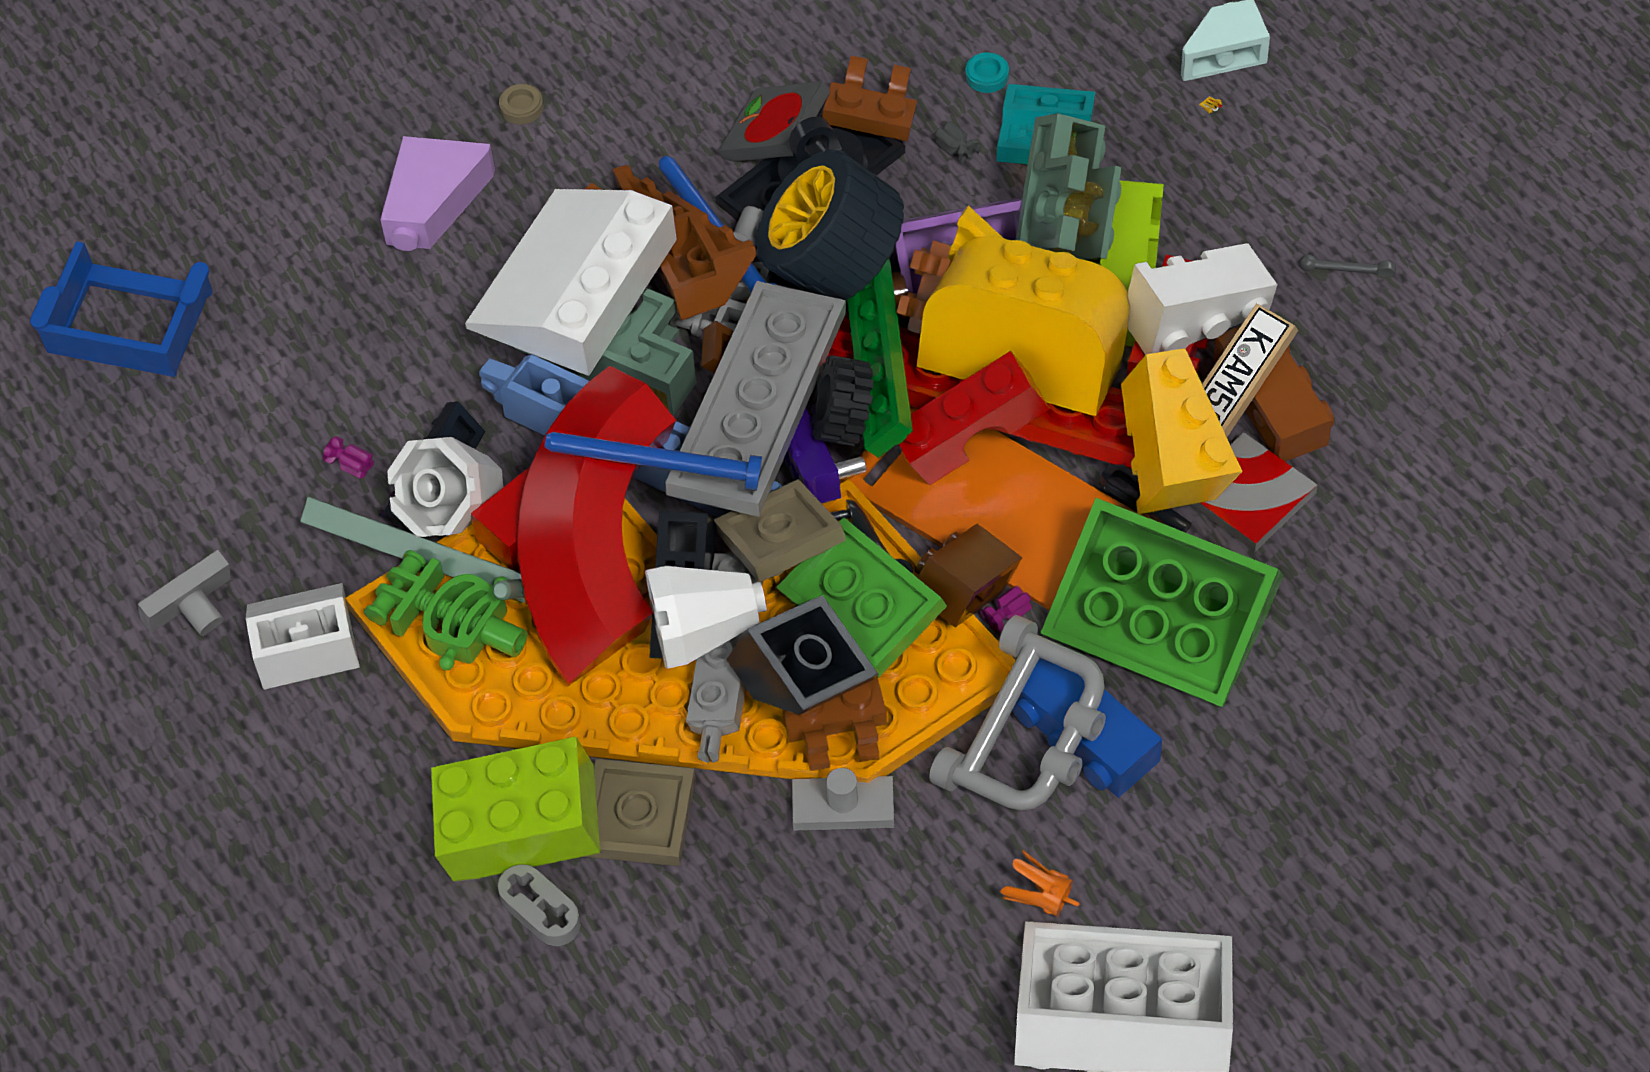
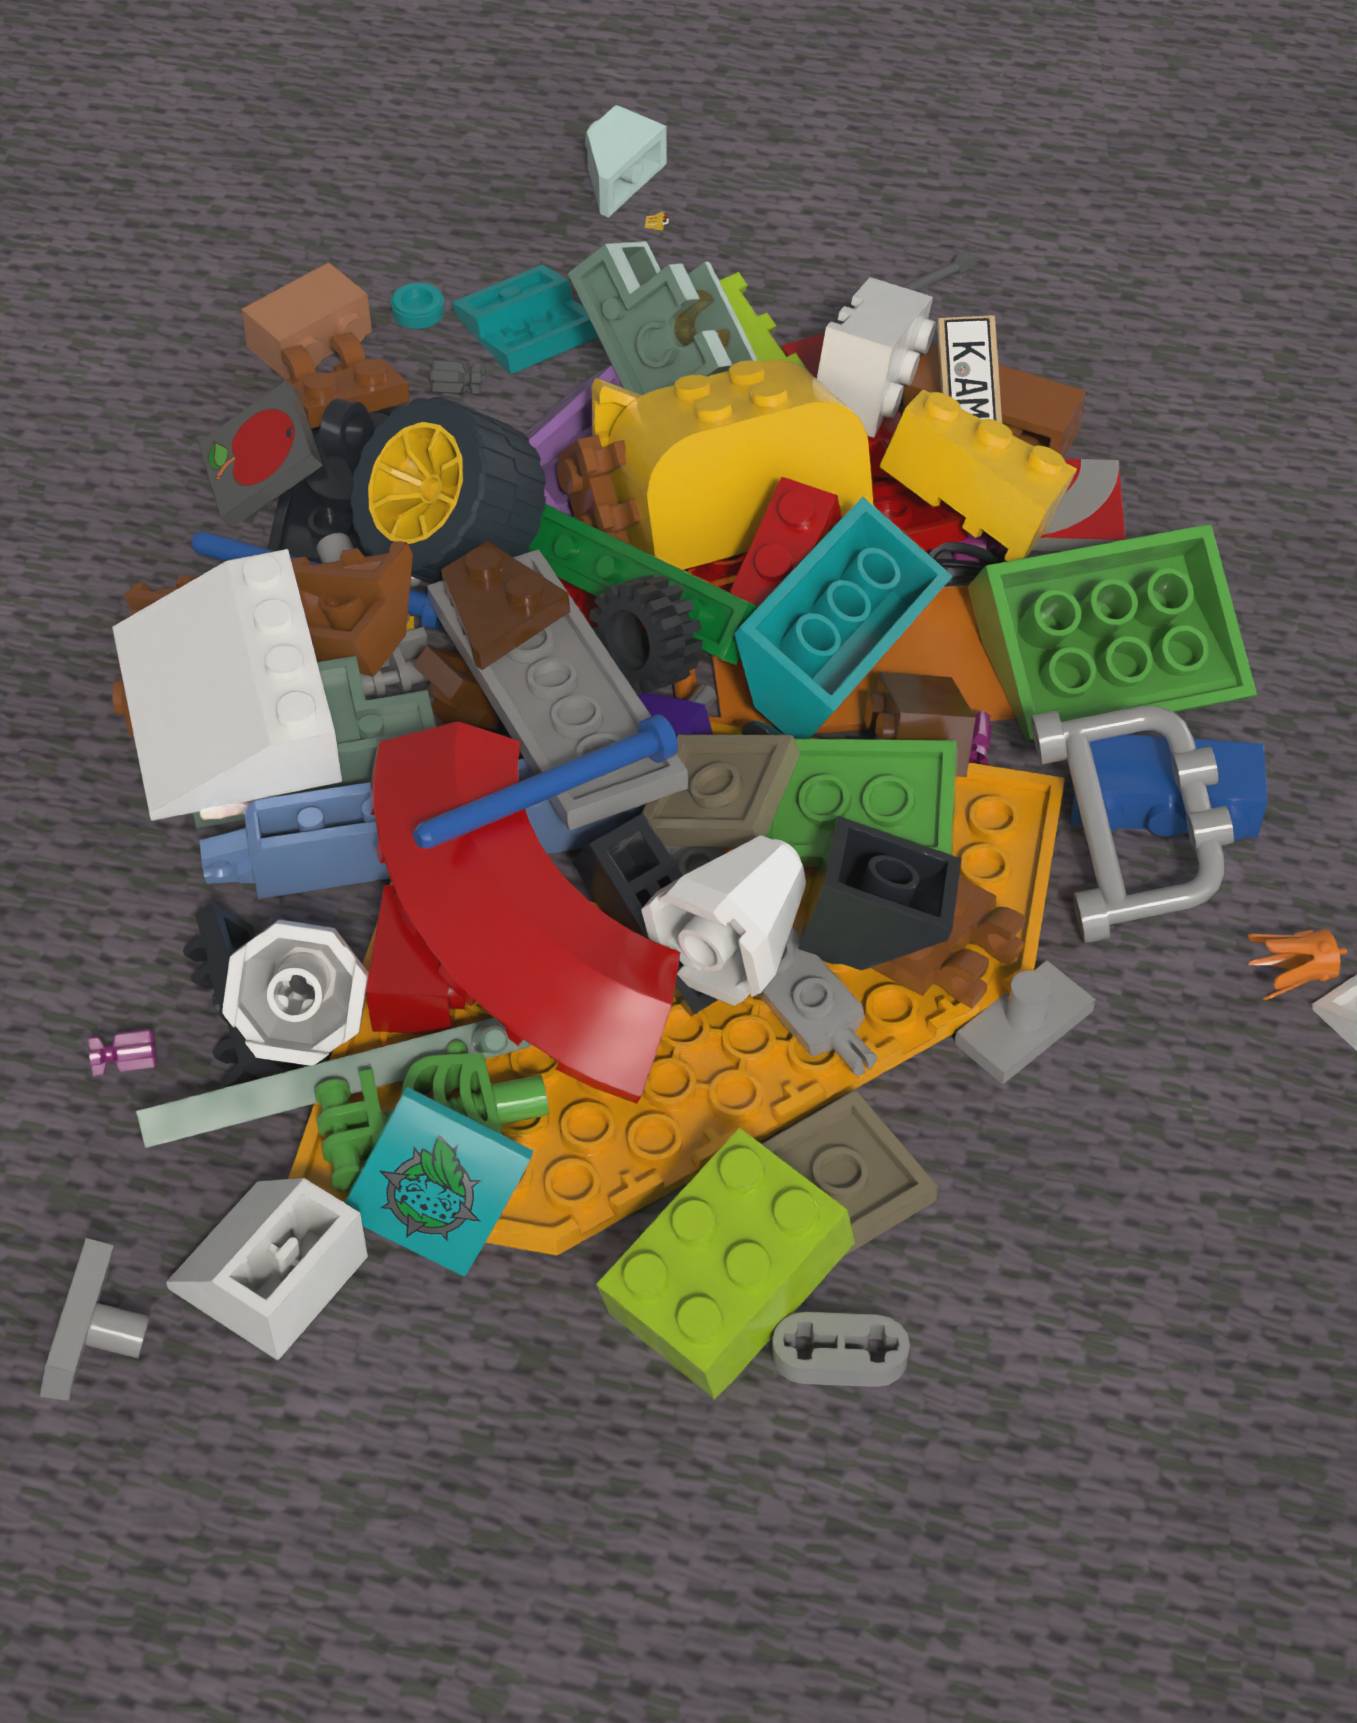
camera: 45 degrees left, 5 degrees down
(407, 649) = (437, 1181): none -> teal slope
(774, 321) = (500, 601): none -> reddish brown wing
(900, 38) = (306, 315): none -> nougat brick
(974, 468) = (834, 619): none -> teal slope

